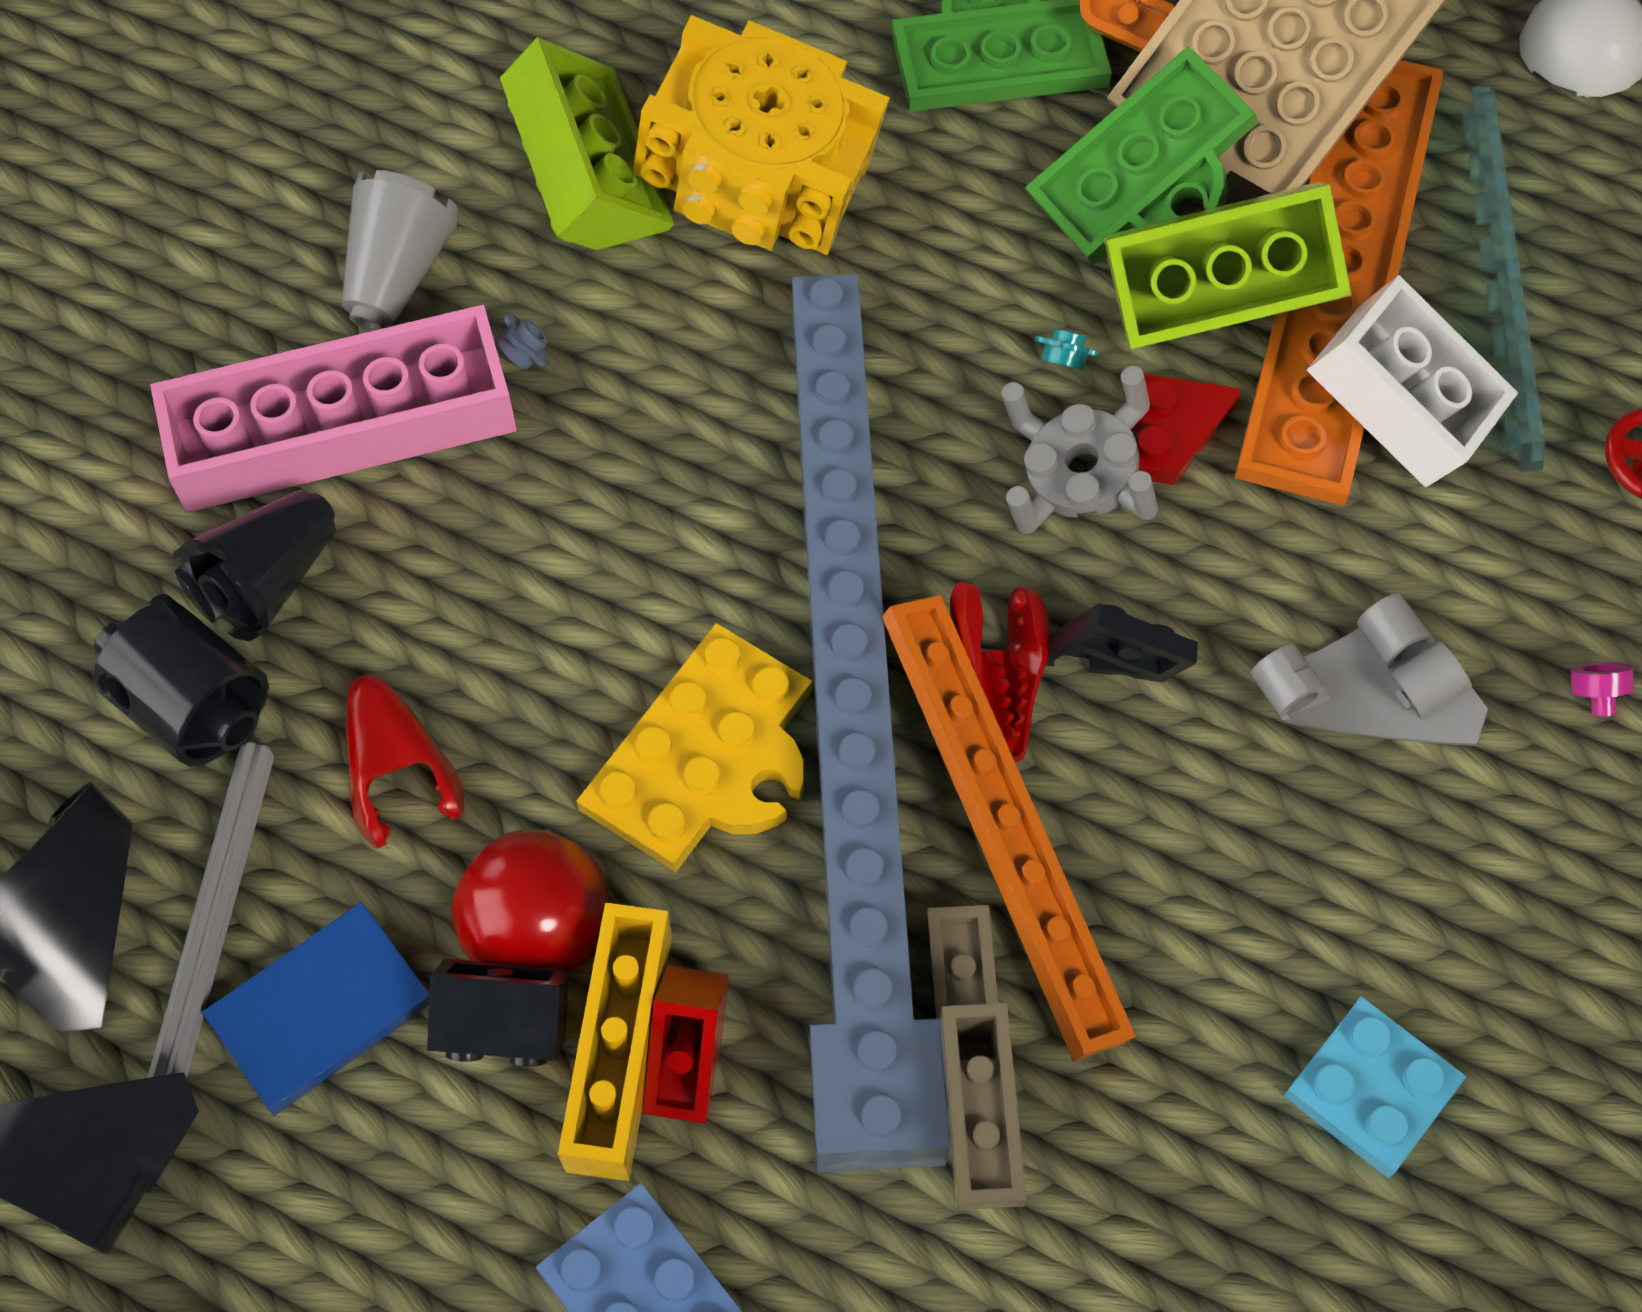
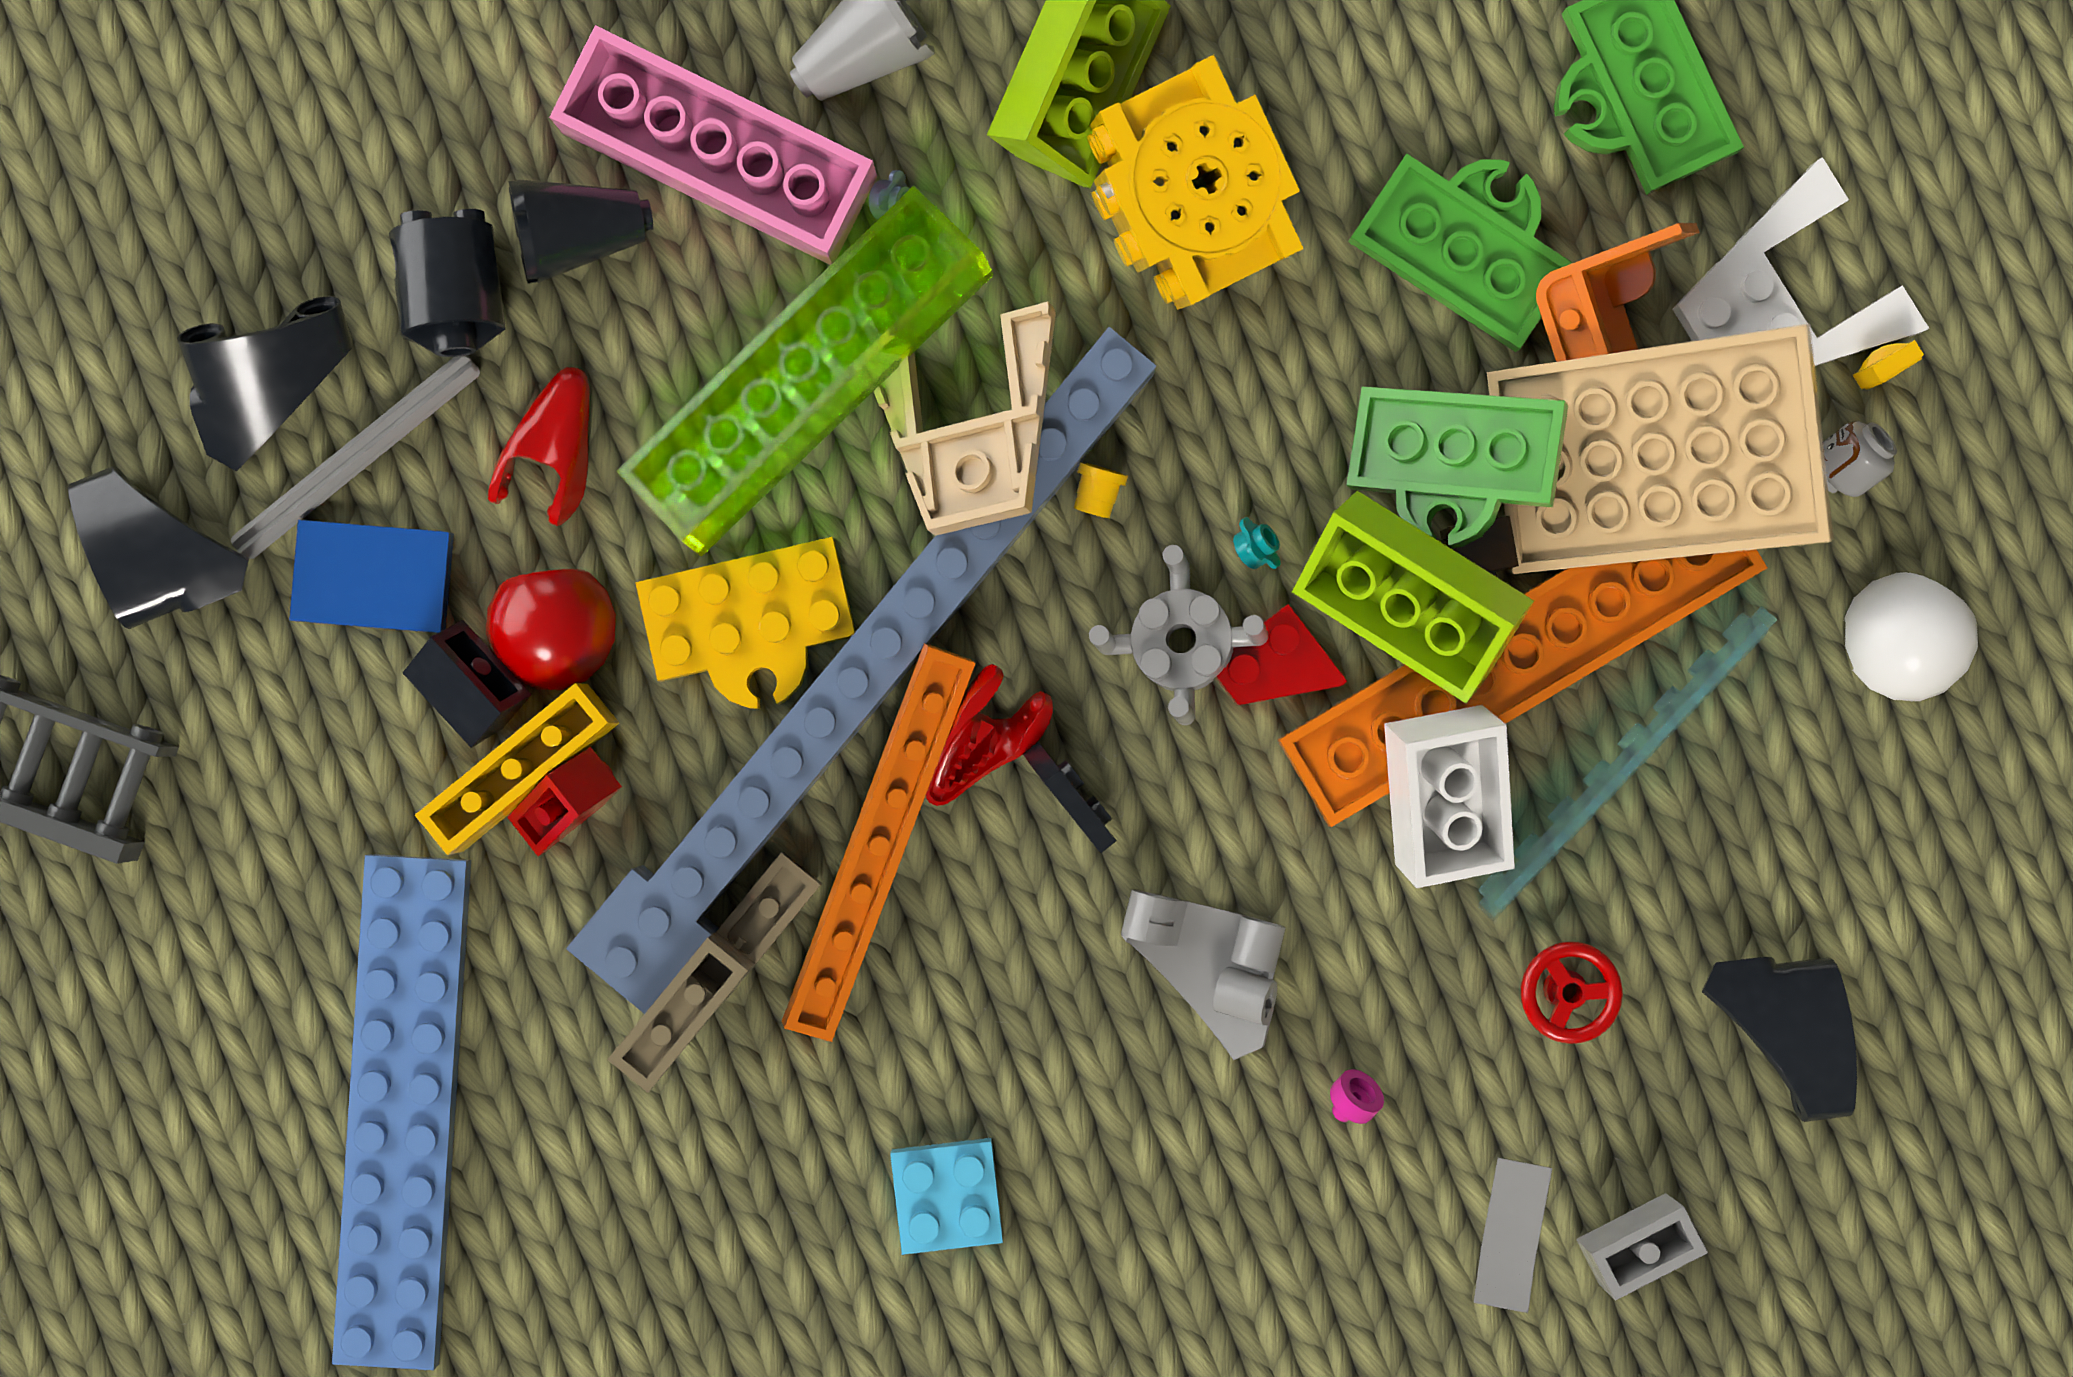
camera: 40 degrees right, 25 degrees up
(572, 514) = (807, 371): none -> clear neon green brick
(785, 454) = (985, 464): none -> tan wing
(899, 410) = (1098, 489): none -> yellow piece

